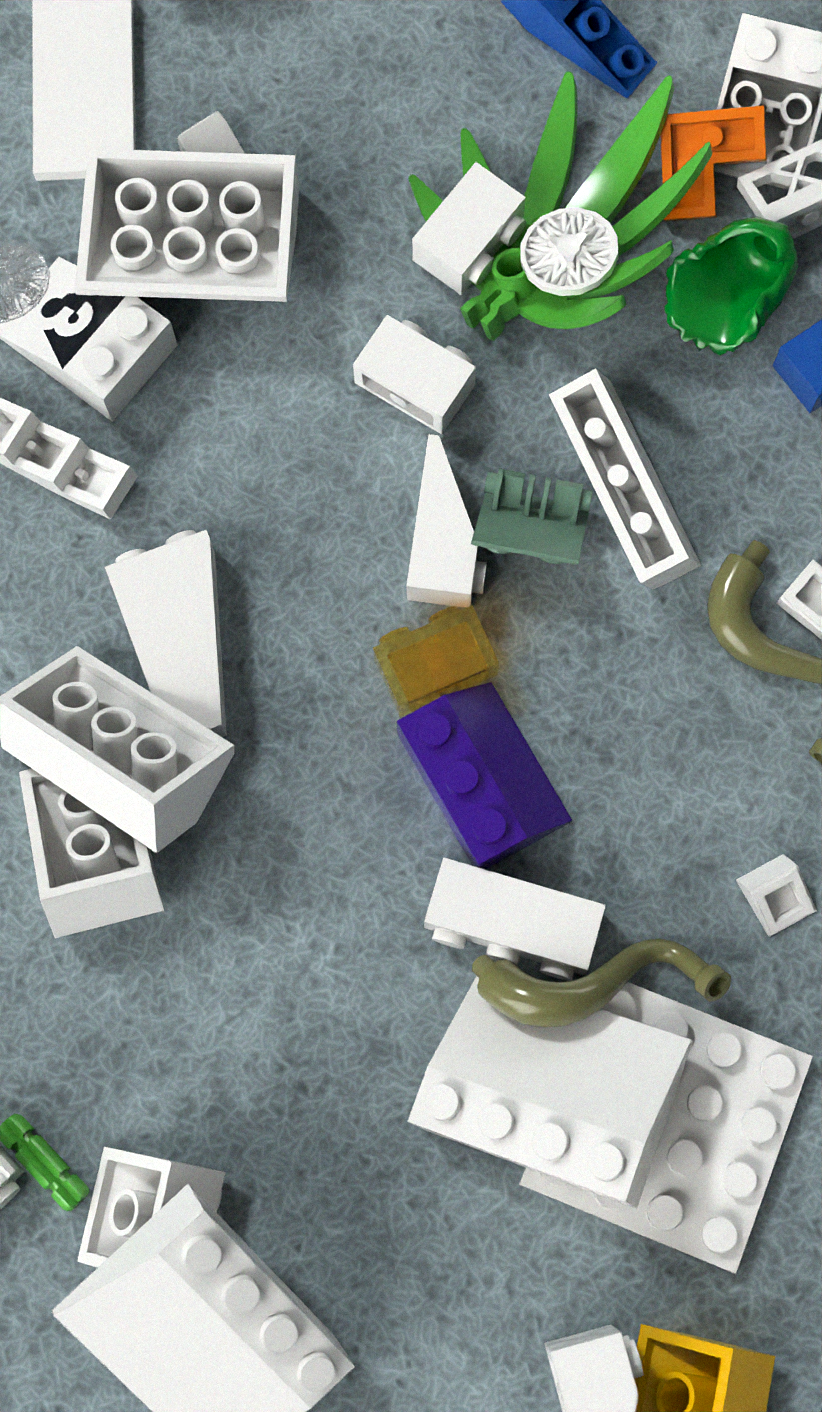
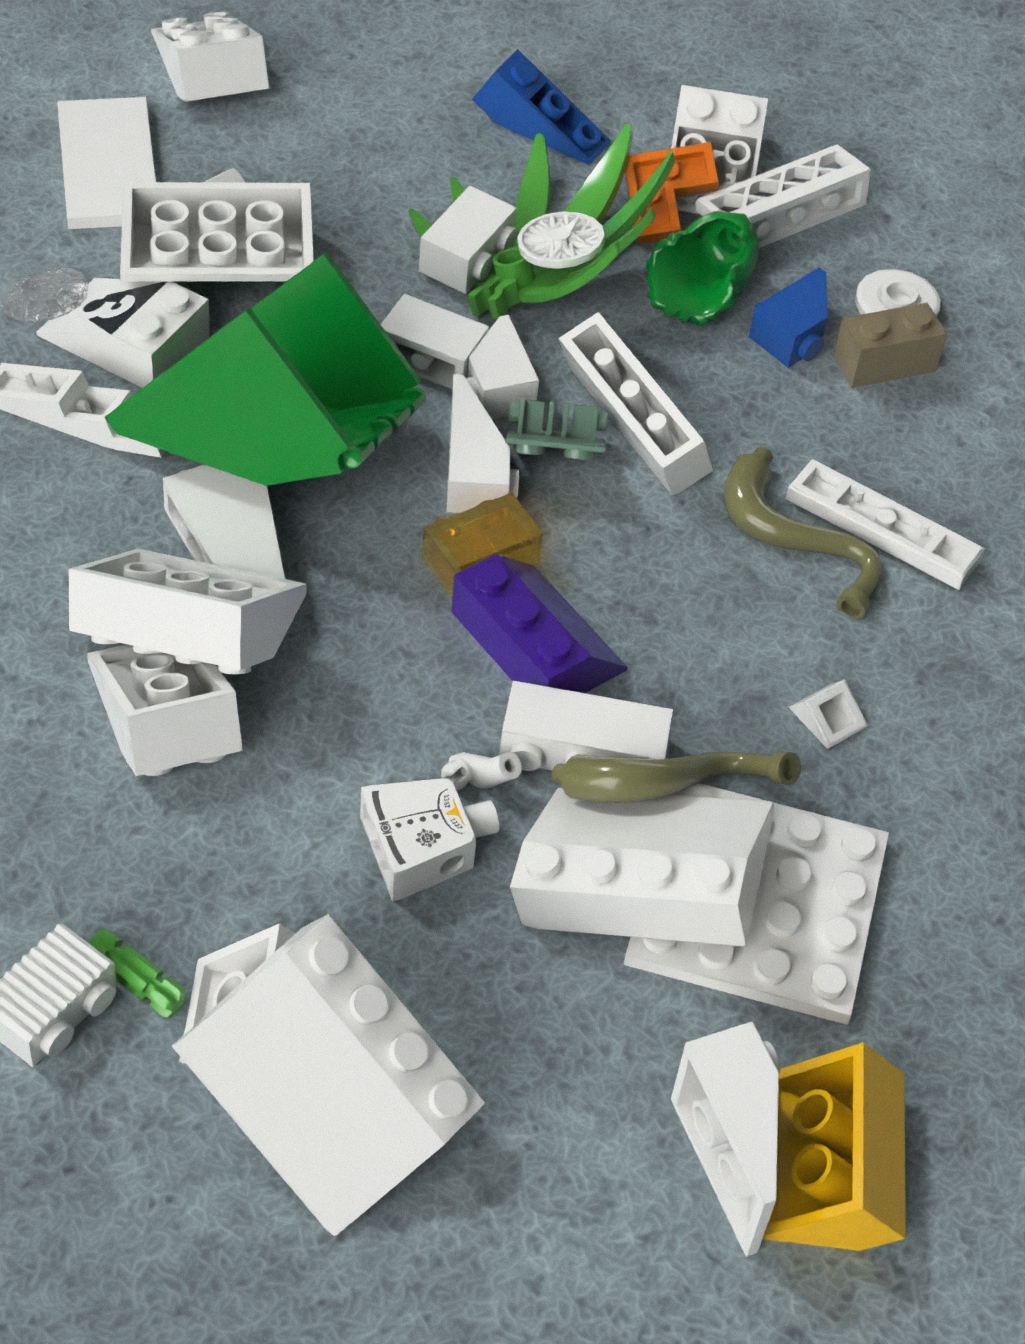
camera: 15 degrees left, 25 degrees down
(231, 471) = (282, 388): none -> green windscreen
(334, 1026) = (422, 832): none -> white torso
(406, 948) = (481, 770): none -> white arm
(482, 422) = (501, 370): none -> white slope

